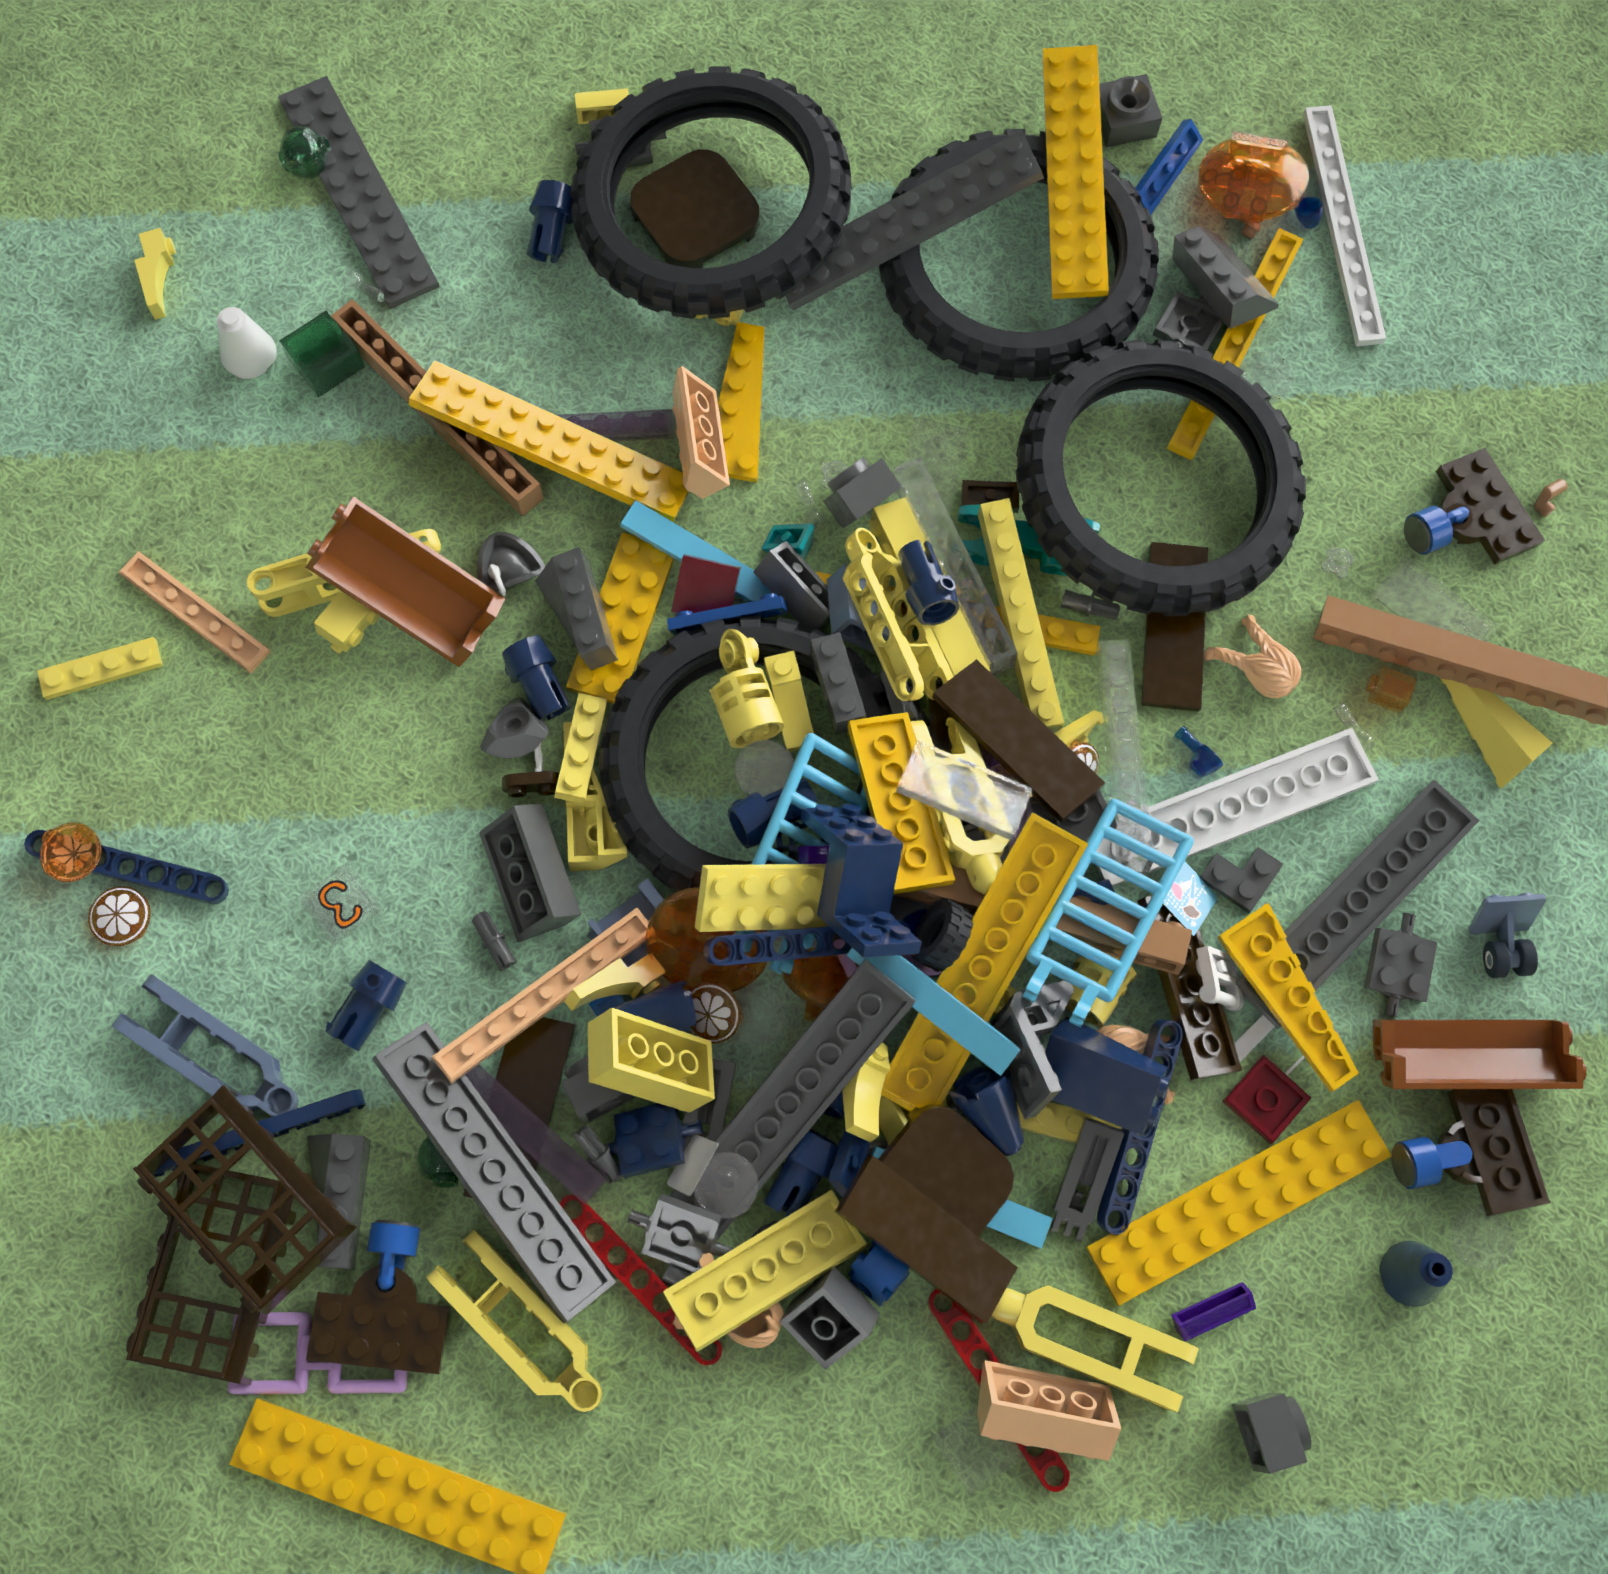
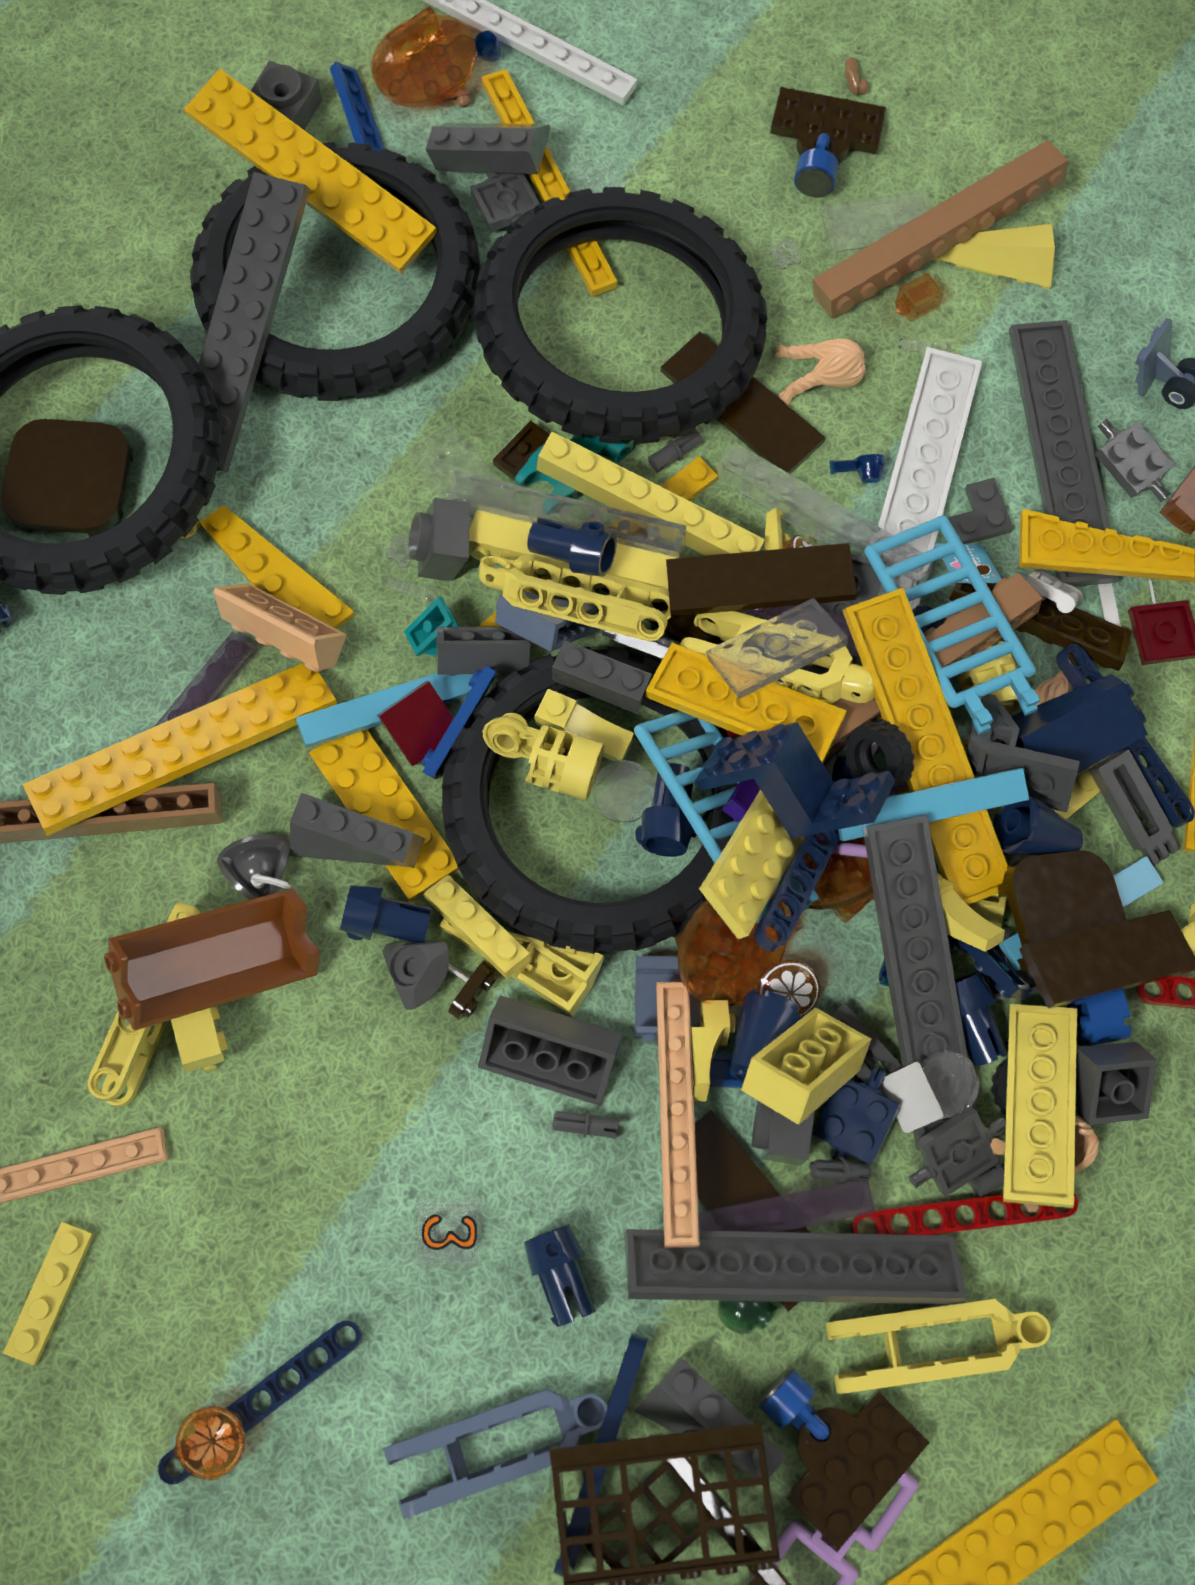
camera: 50 degrees left, 0 degrees up
(119, 916) = (302, 1440): dish -> none

